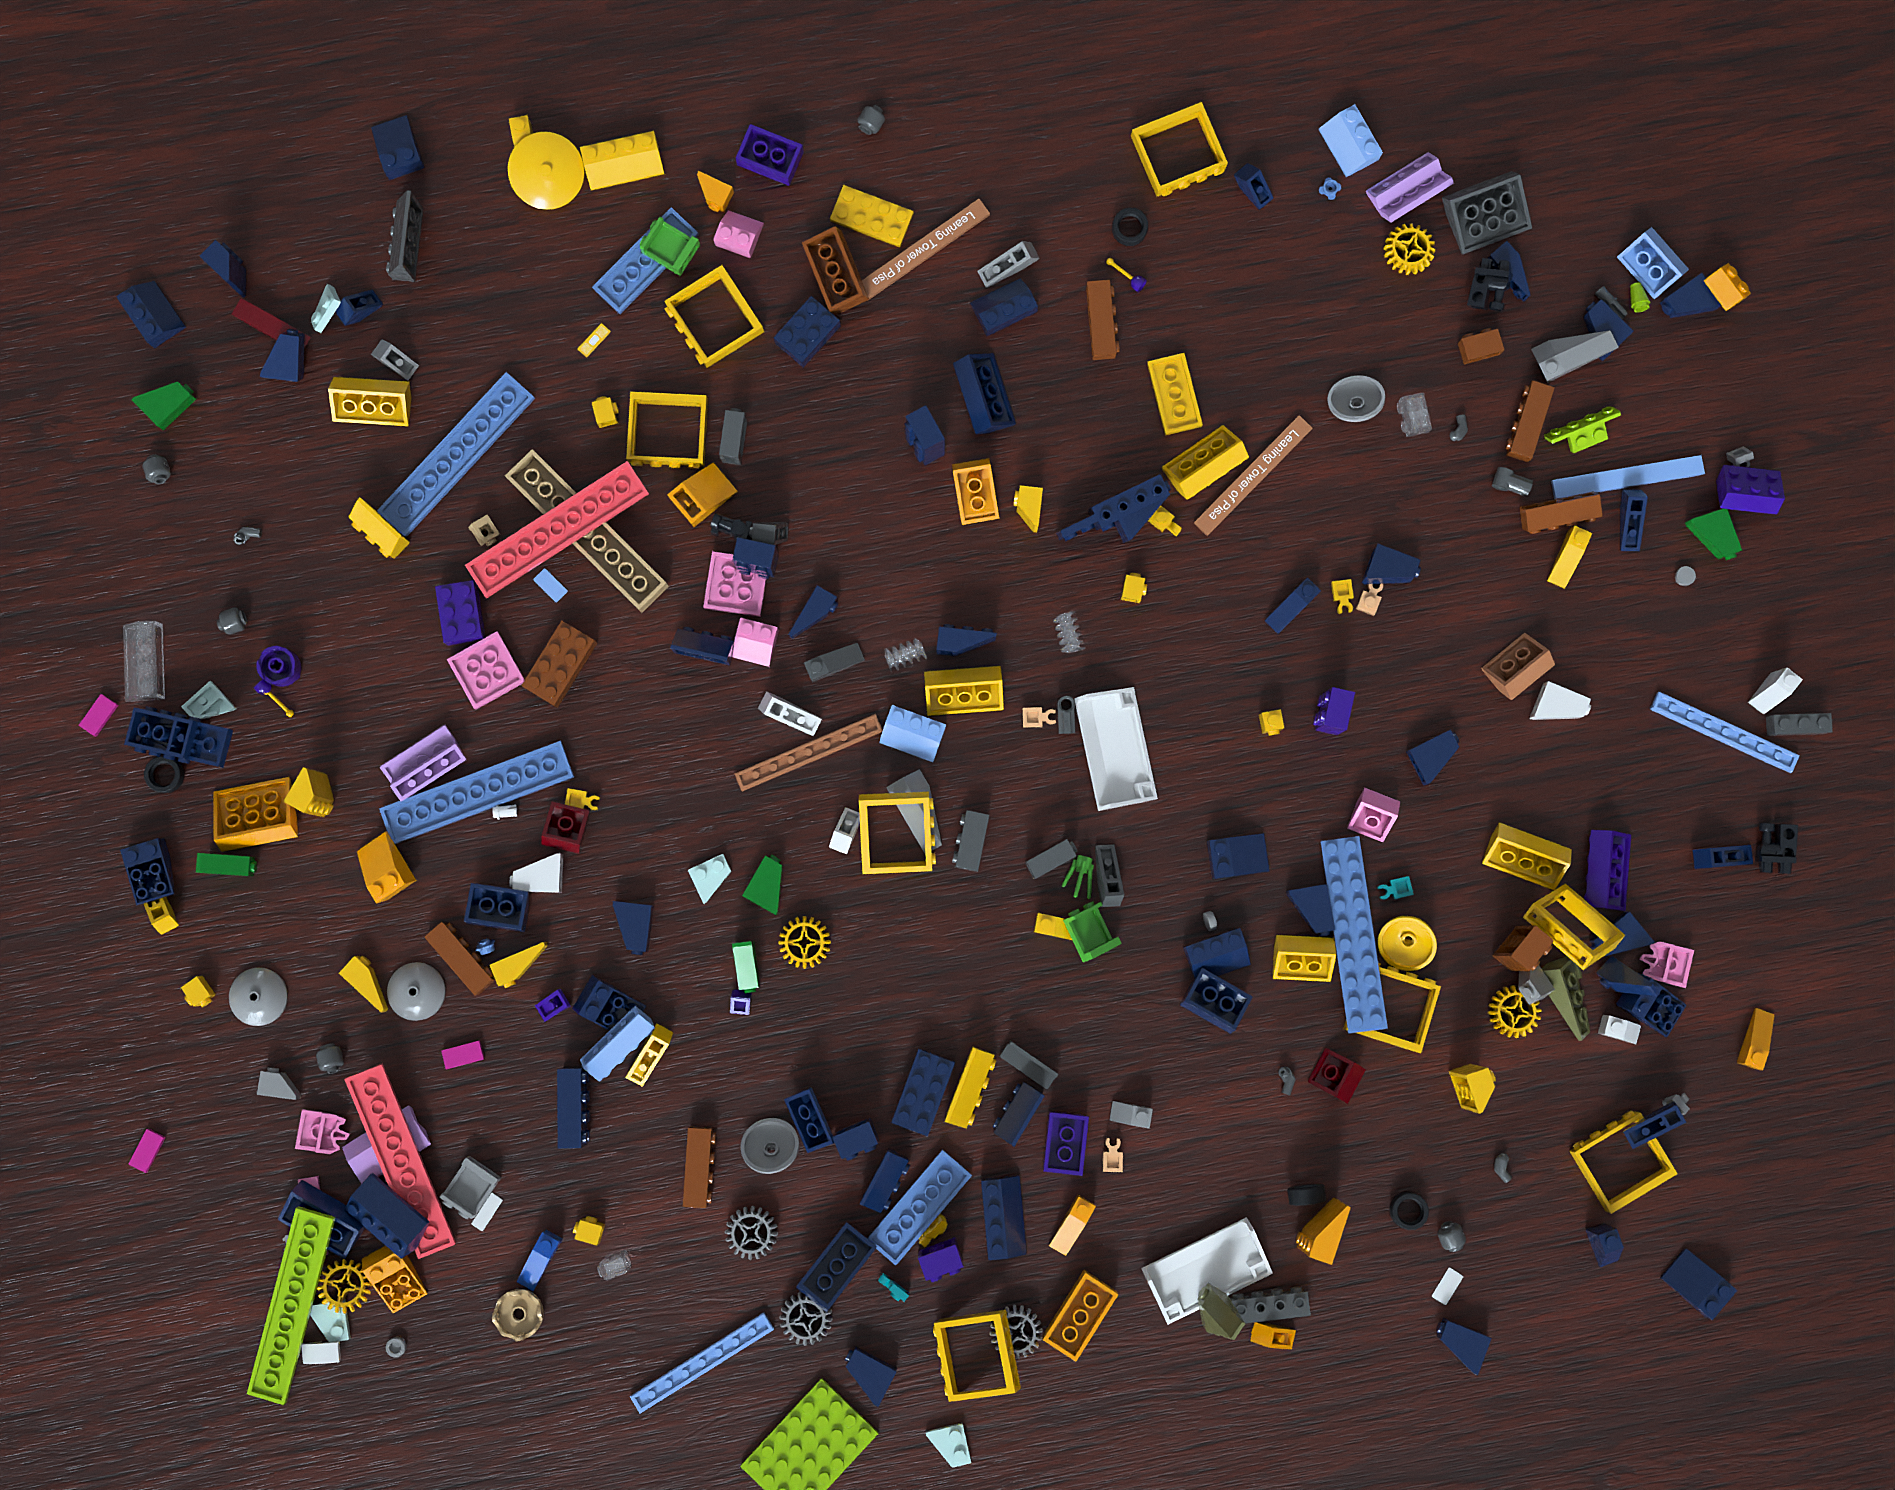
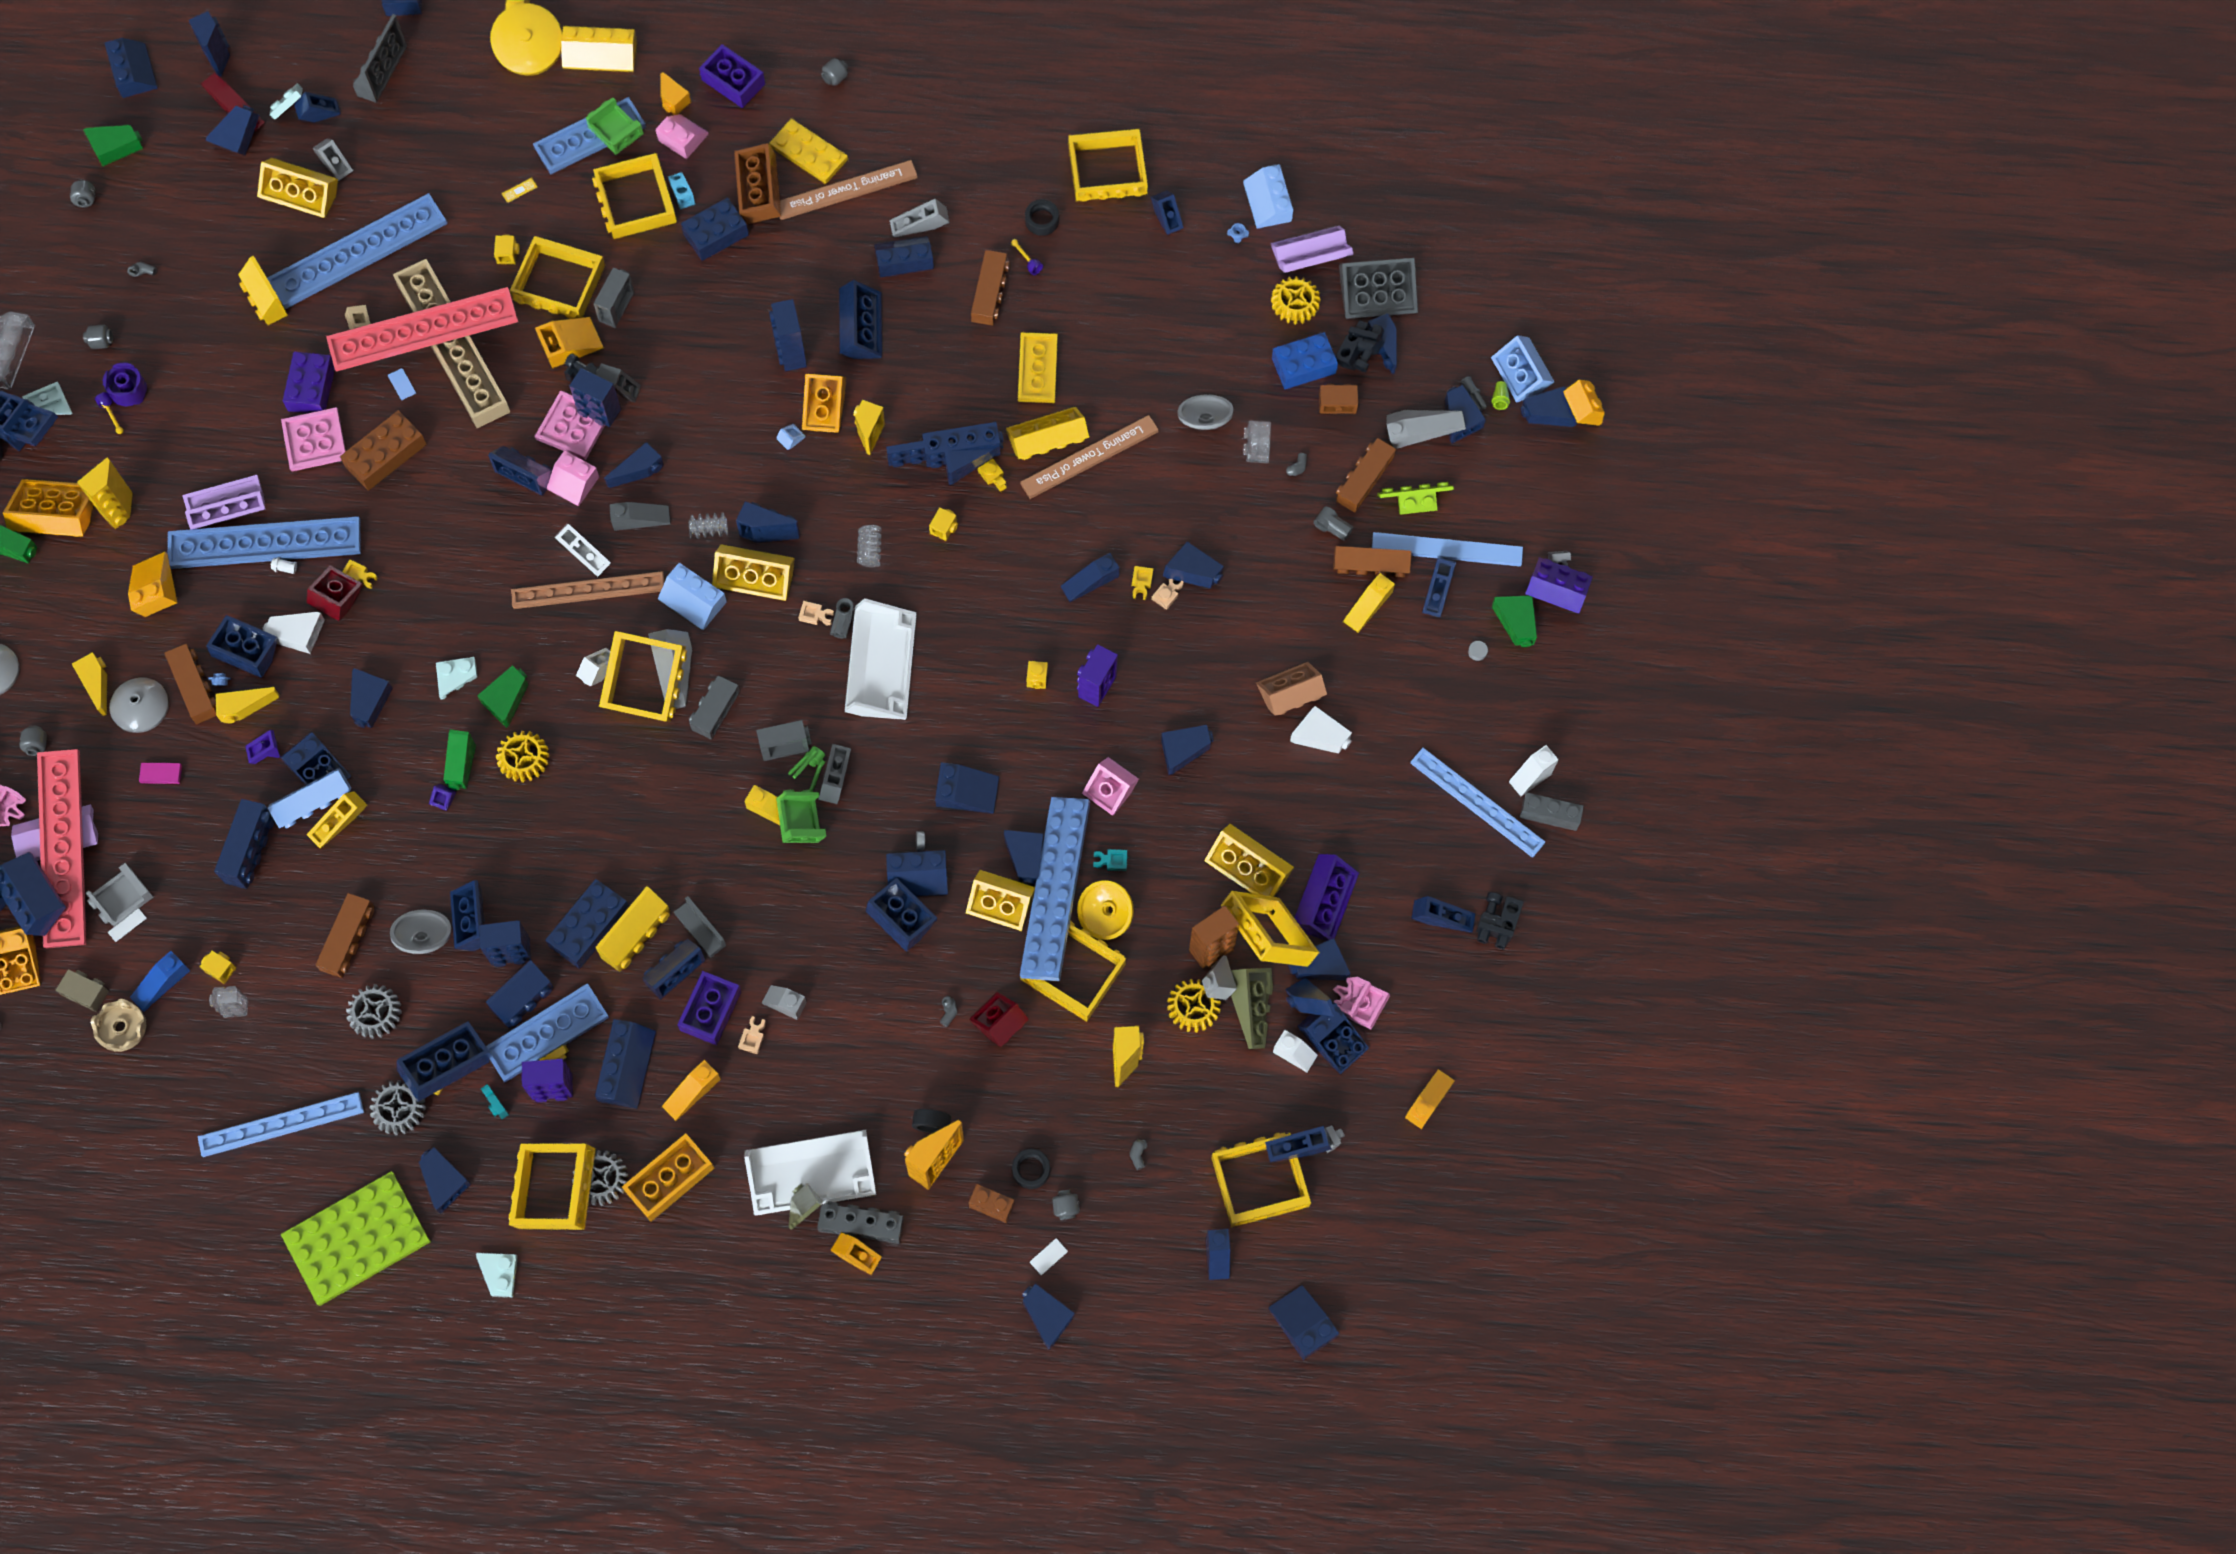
camera: 15 degrees right, 15 degrees down
(470, 1289) = (82, 990): none -> dark tan brick
(758, 296) = (681, 190): none -> medium azure leg
(953, 535) = (790, 436): none -> light blue slope
(1383, 1254) = (991, 1203): none -> dark orange brick
(1436, 314) = (1304, 360): none -> blue brick

